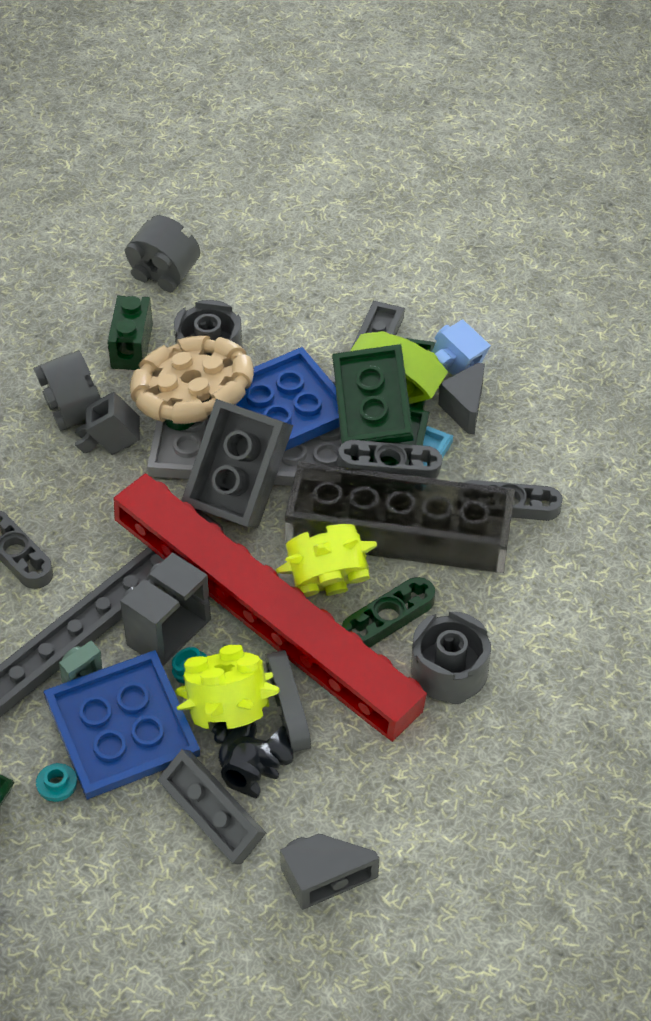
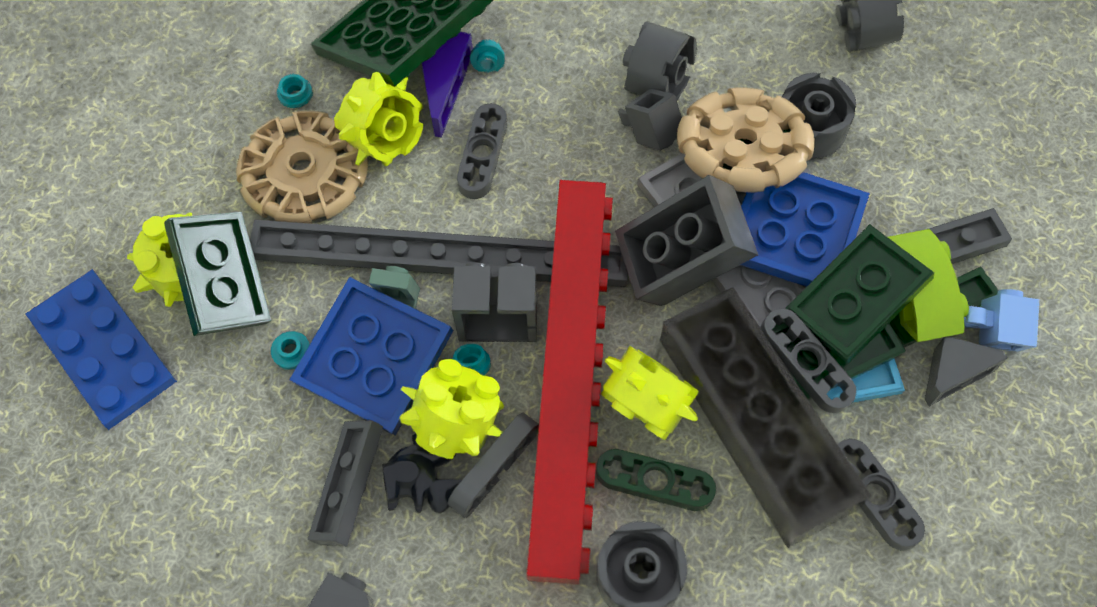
camera: 55 degrees right, 15 degrees up
(132, 326) = (766, 56): dark green brick -> none

